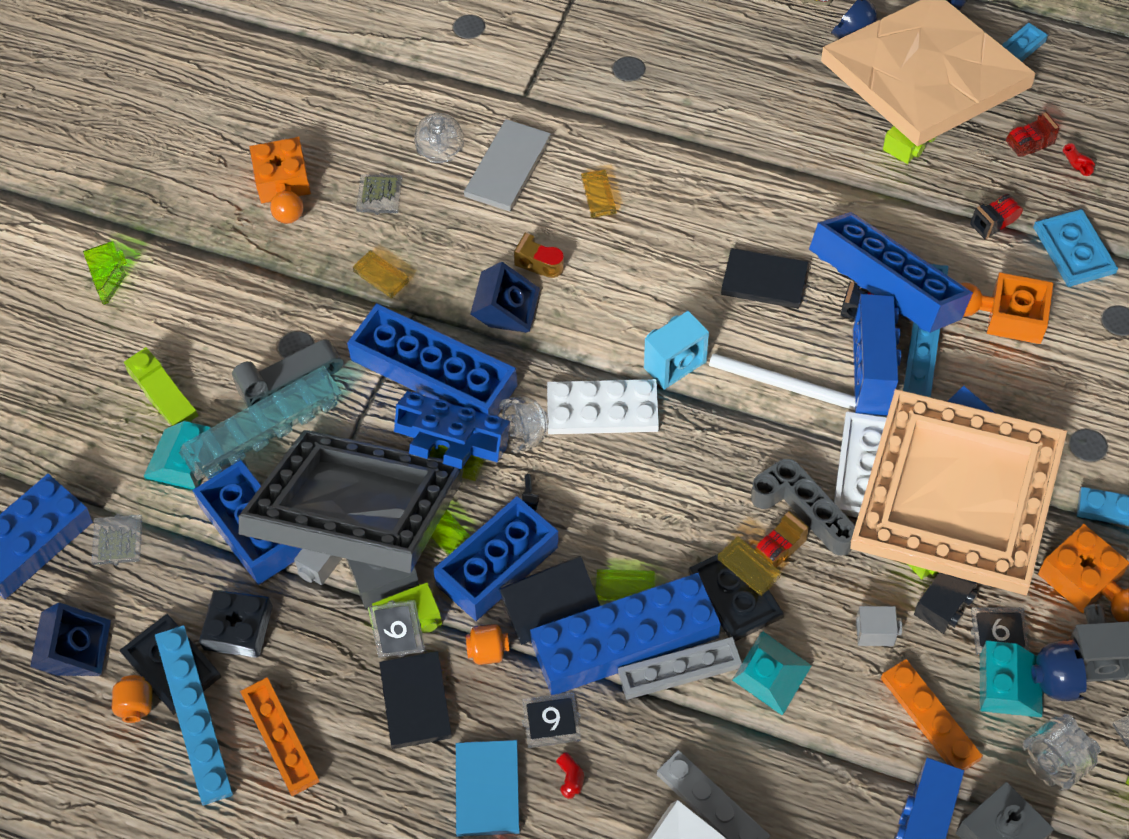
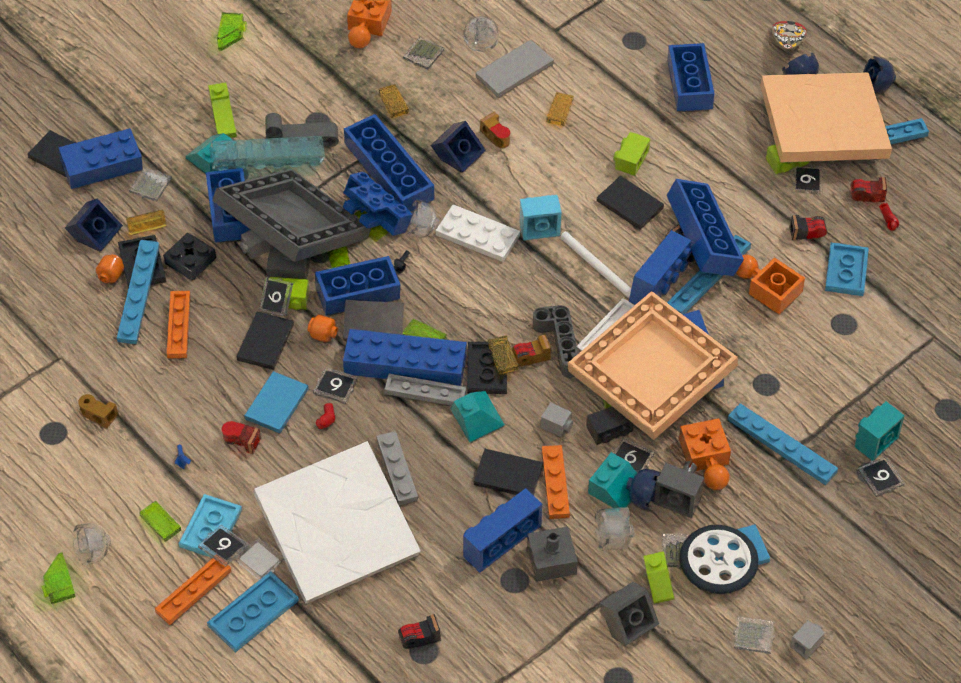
camera: 25 degrees right, 5 degrees down
(144, 601) = (146, 222): none -> clear yellow tile
(727, 213) = (632, 153): none -> lime brick
(733, 85) = (690, 77): none -> blue brick
(863, 736) = (507, 472): none -> black tile
(950, 155) = (807, 180): none -> piece

